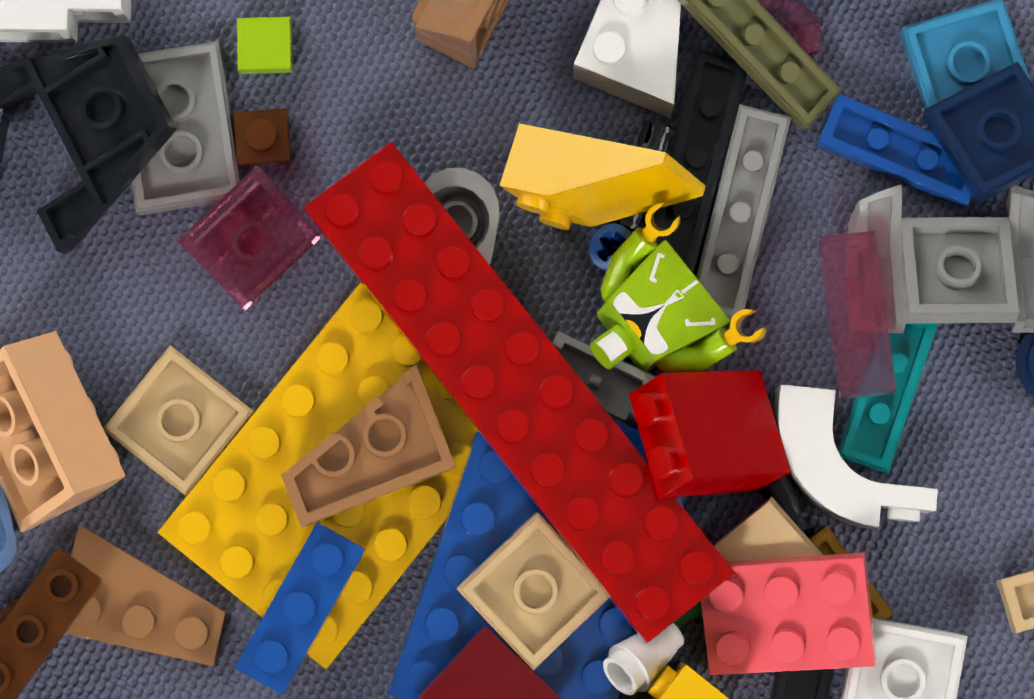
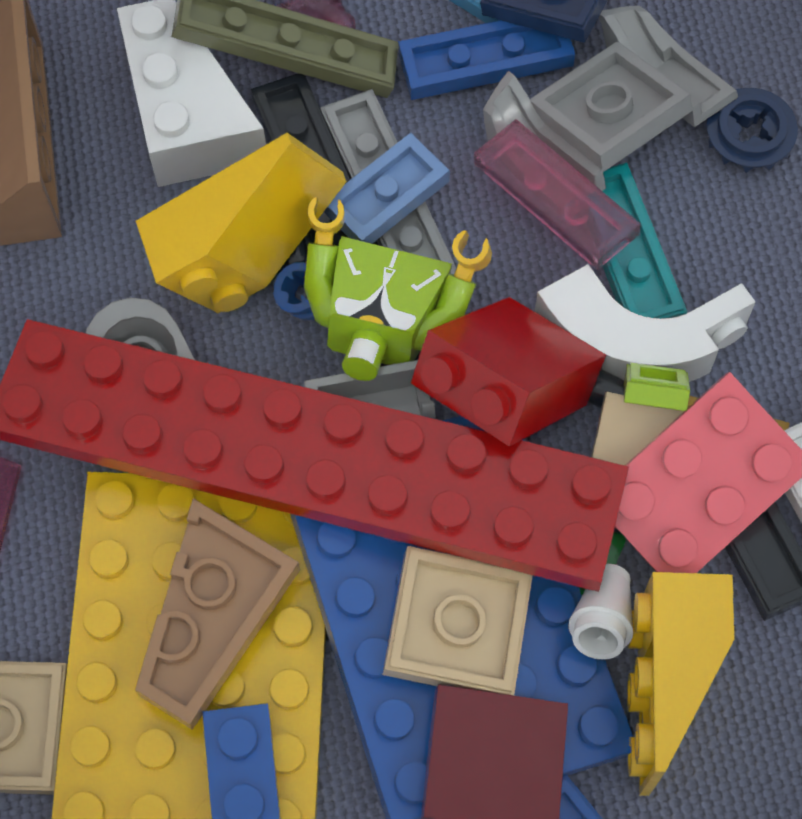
camera: 40 degrees left, 15 degrees down
(734, 219) = (389, 189): none -> medium blue plate
(807, 524) = (656, 386): none -> lime tile

